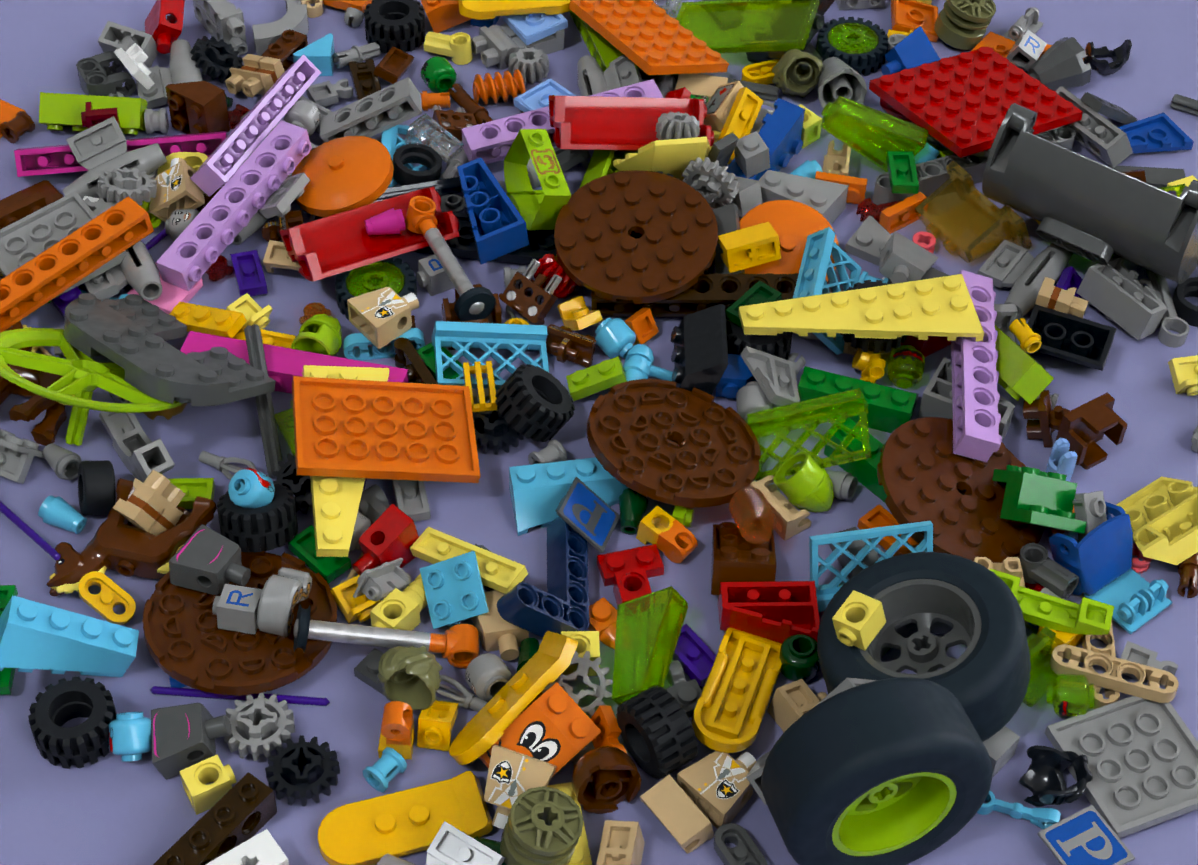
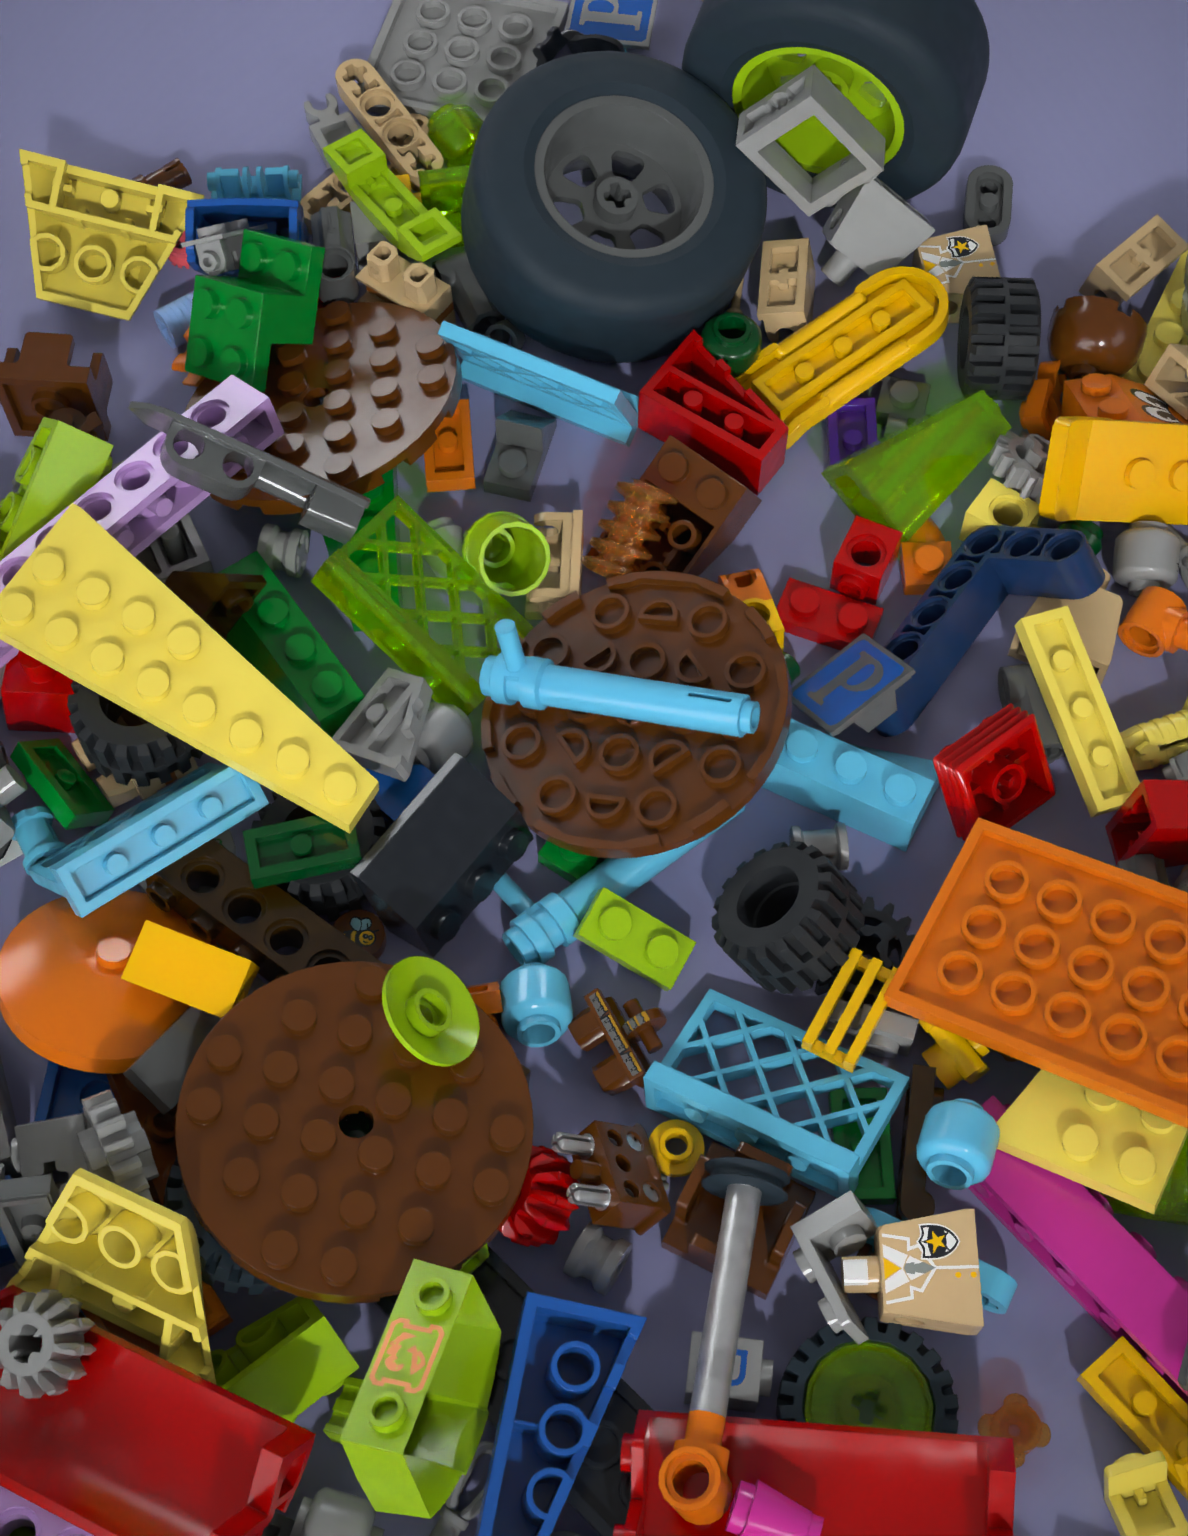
camera: 140 degrees left, 15 degrees up
(319, 335) = (1051, 1335): lime helmet -> none
(399, 355) = (958, 1143): none -> medium azure head
(429, 304) = (824, 1235): none -> light grey bracket
(454, 590) = (1140, 681): medium azure hinge -> none
(490, 512) = (995, 771): none -> red brick
(576, 314) = (558, 1086): yellow bracket -> none
(628, 261) = (430, 1011): none -> lime dish
(678, 814) = (1034, 255): tan hinge -> none
(724, 423) = (542, 684): none -> medium azure cylinder
(859, 620) = (680, 229): light yellow brick -> none
(904, 375) = (216, 596): none -> dark brown slope
(929, 392) = (327, 510): none -> dark grey panel
(1061, 459) = (142, 373): light blue hinge -> none

